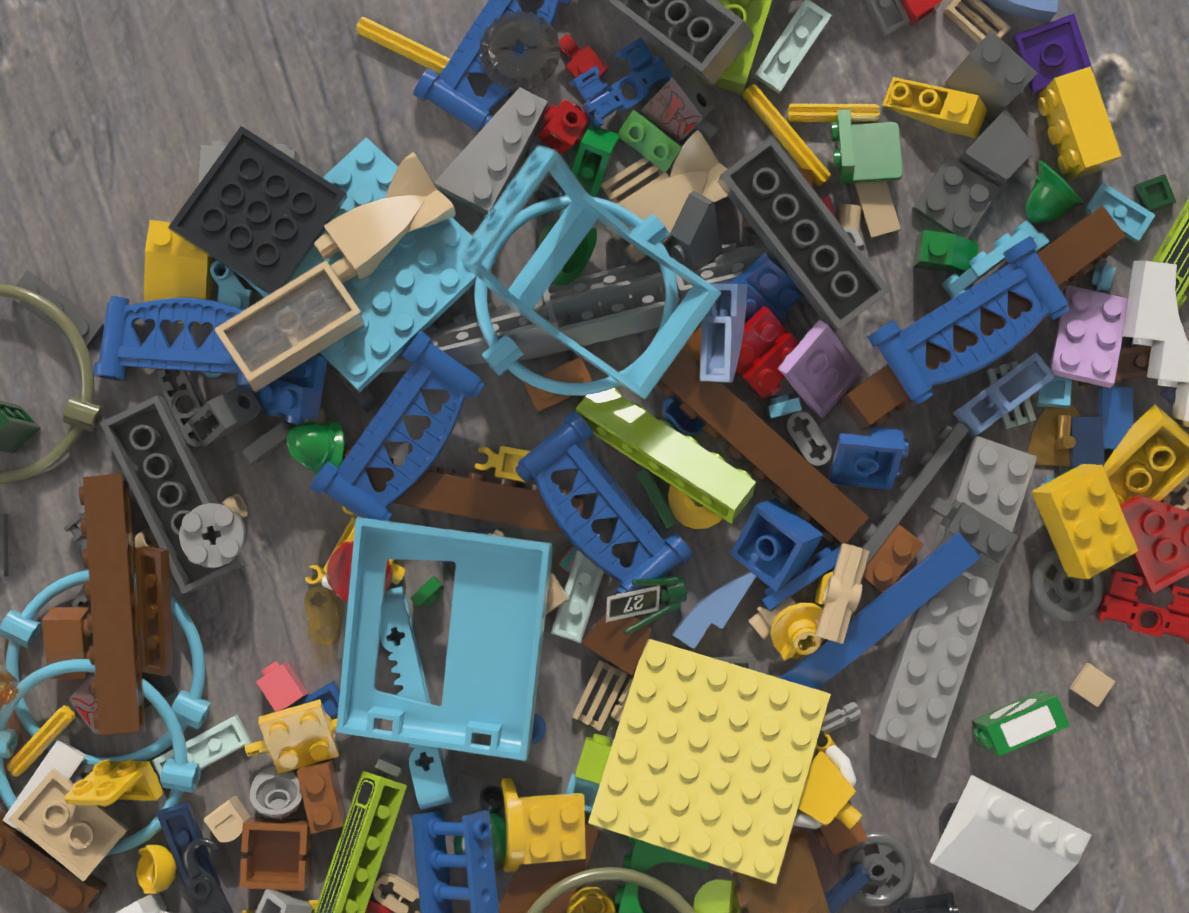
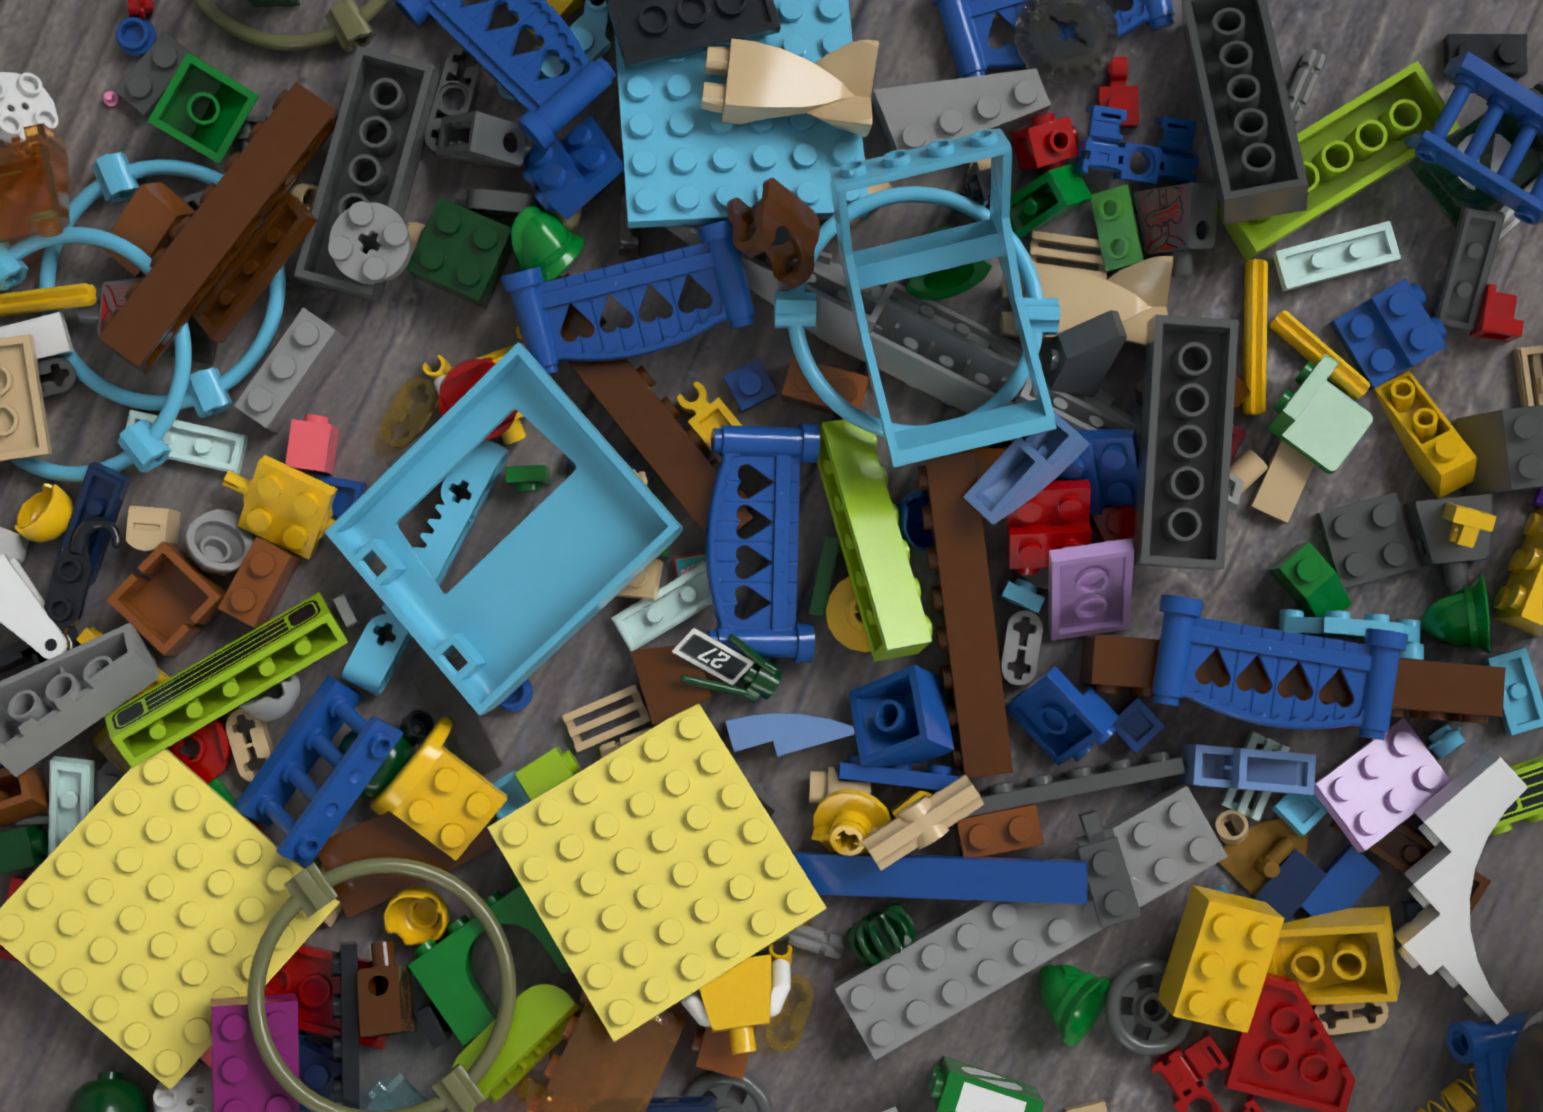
camera: 45 degrees right, 0 degrees up
(38, 541) = (203, 108): none -> green slope
(115, 782) = (78, 398): yellow bracket -> none
(228, 653) = (289, 371): none -> light grey brick
(271, 492) = (462, 253): none -> dark green brick
(290, 326) = (615, 105): brick -> none
(393, 859) = (274, 701): none -> light grey hair
(452, 314) = (781, 228): none -> reddish brown piece
(512, 422) = (750, 385): none -> blue plate
(801, 317) = (1115, 523): none -> red plate
(863, 64) = (1389, 333): none -> blue plate
(868, 772) = (799, 1017): none -> clear yellow beam
(874, 680) = (881, 934): none -> dark green gear
(916, 425) = (1137, 725): none -> blue plate
(1006, 139) = (1467, 523): none -> yellow tile
(1018, 620) = (1072, 999): none -> green piece
(1026, 431) = (1238, 823): none -> tan hinge

